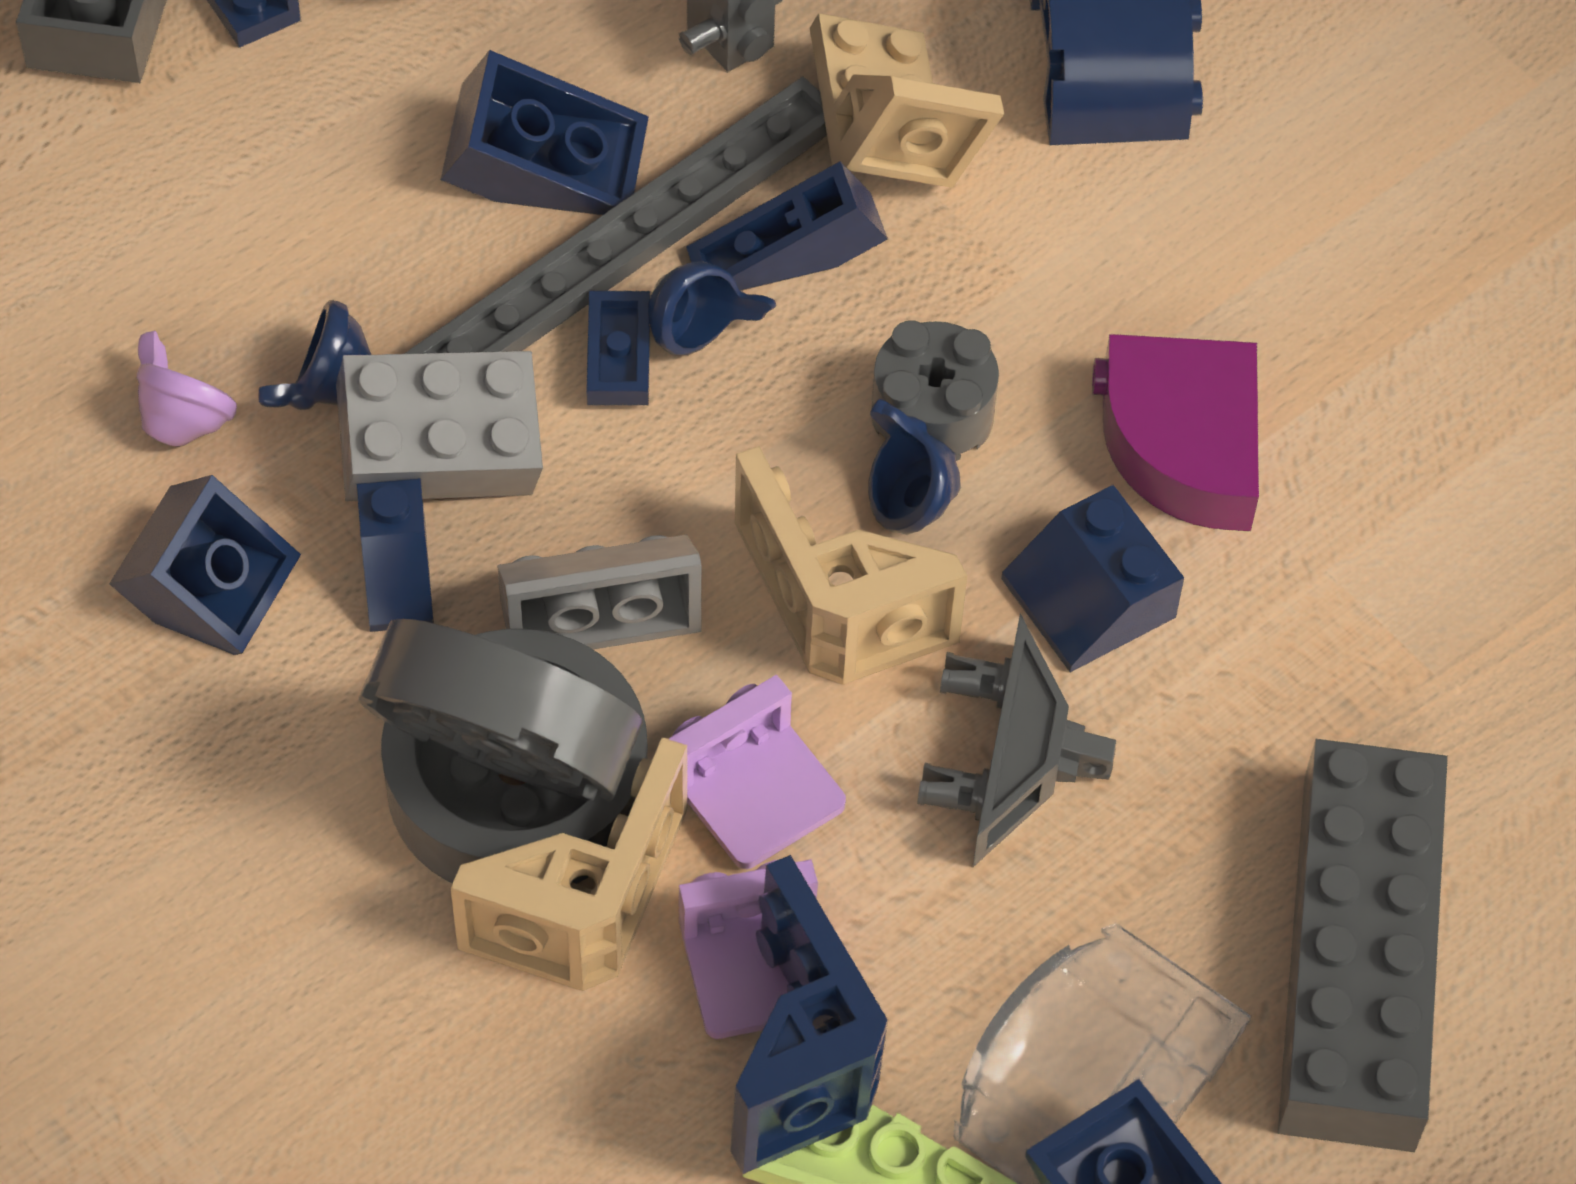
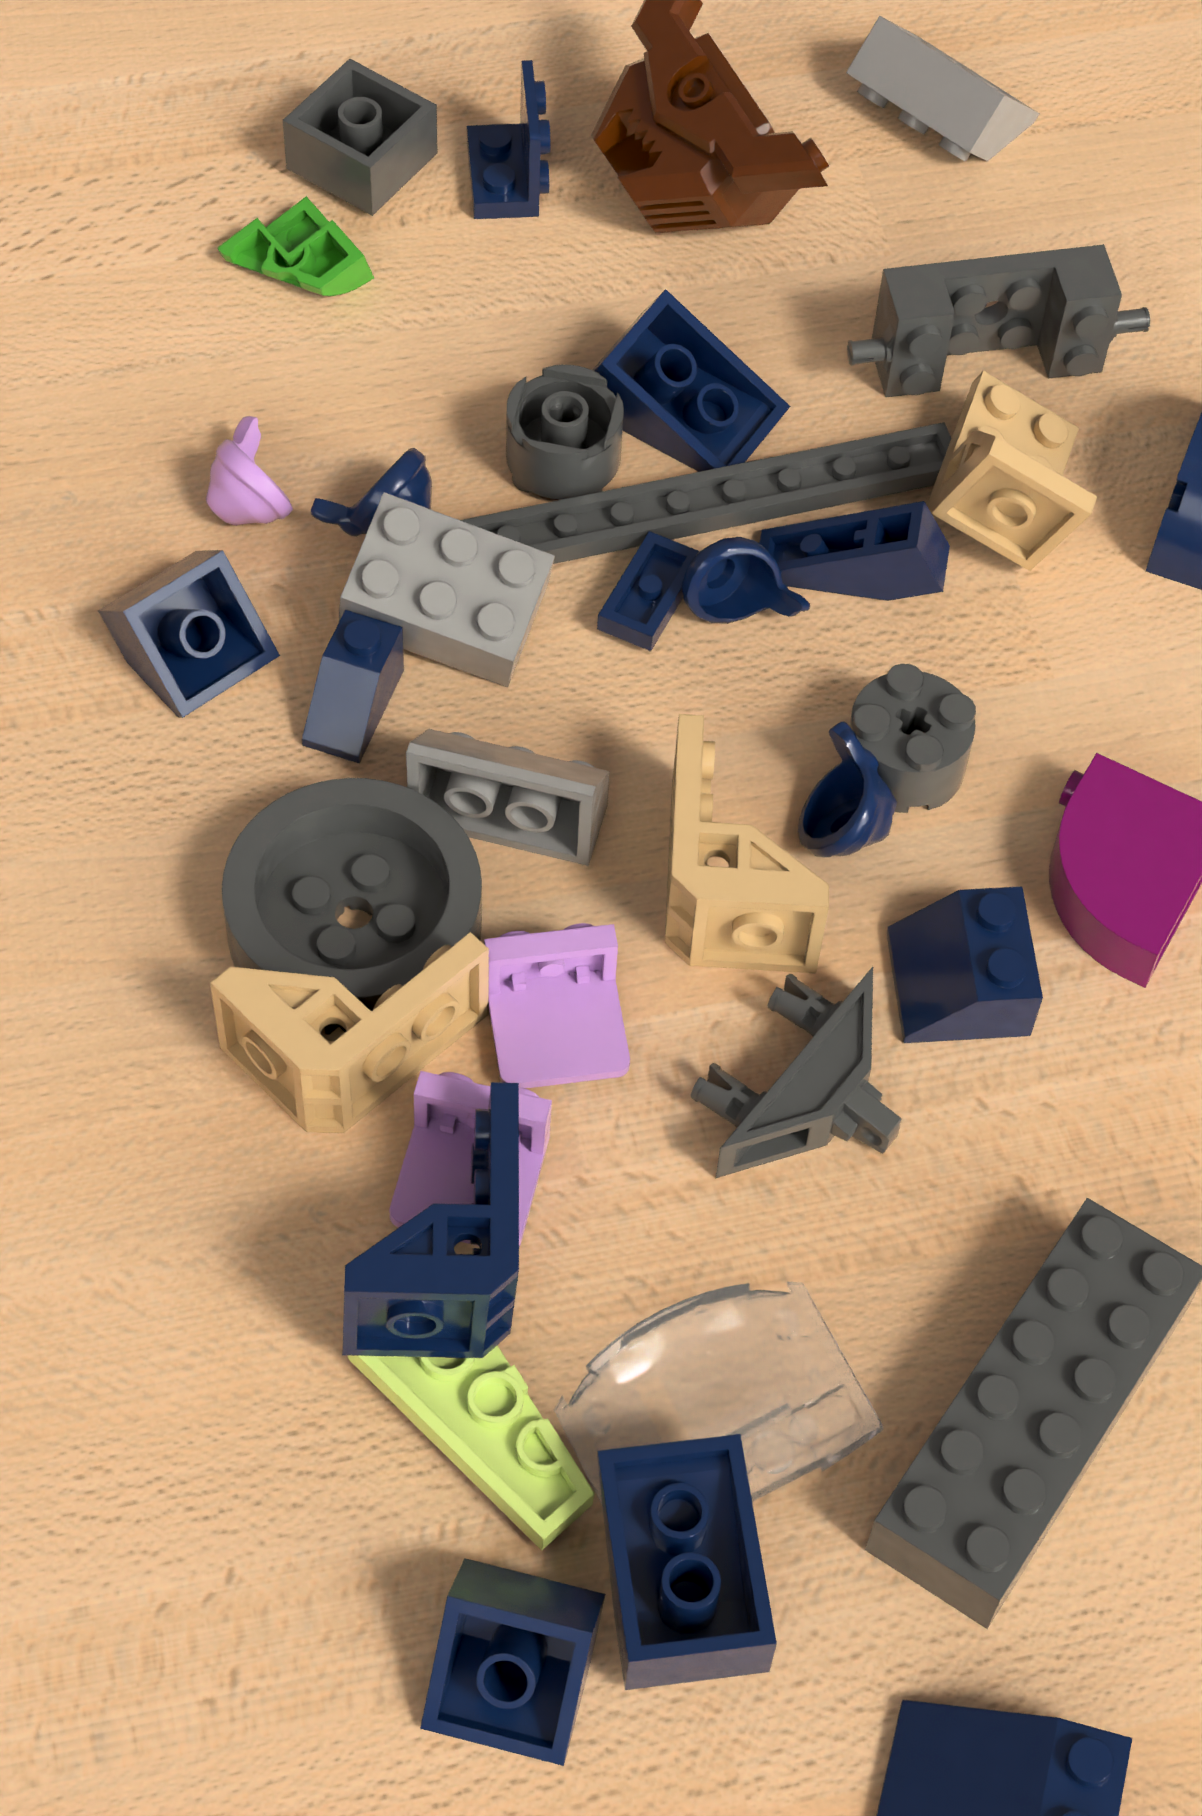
camera: 25 degrees right, 0 degrees up
(92, 146) = (300, 250): none -> bright green slope
(458, 228) = (563, 433): none -> dark grey brick
(501, 709) = (331, 843): dark grey brick -> none

